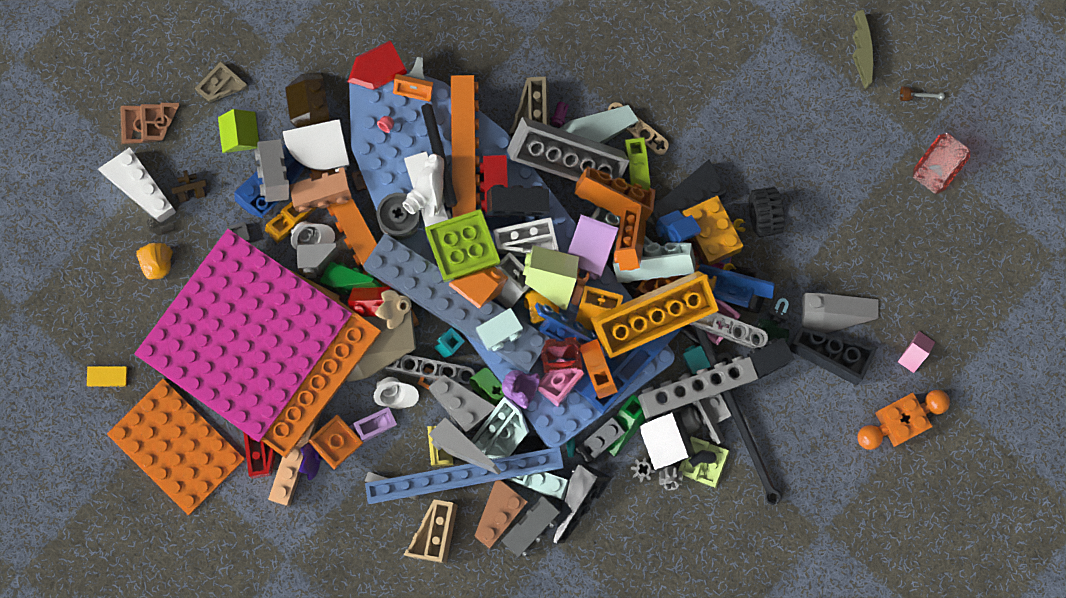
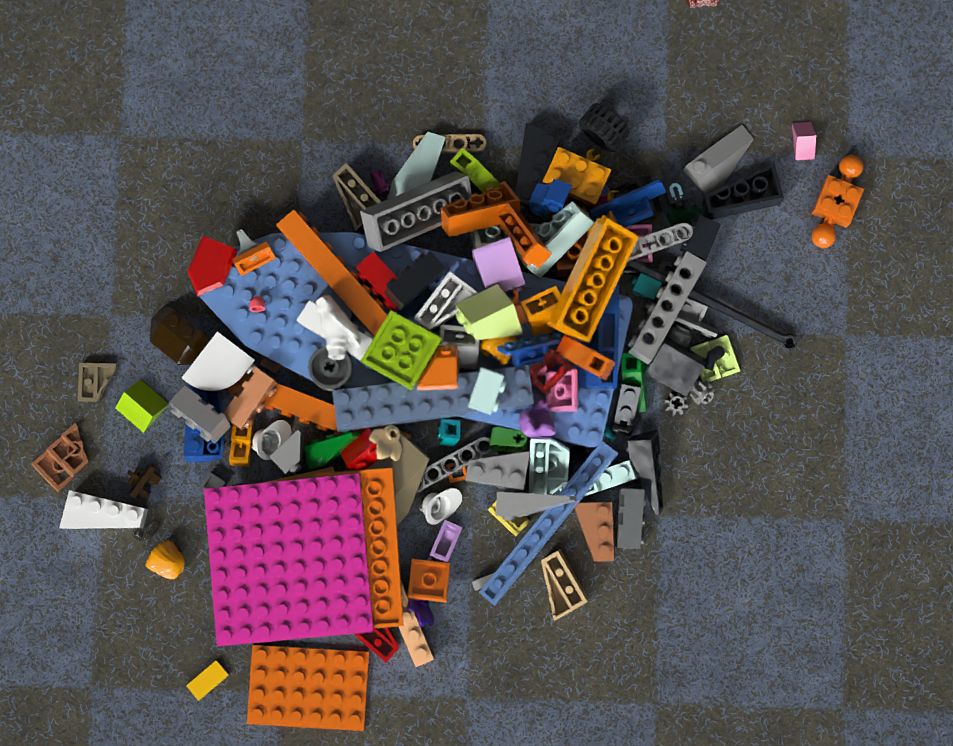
camera: 35 degrees left, 5 degrees up
(437, 148) = (317, 292): black axle -> none

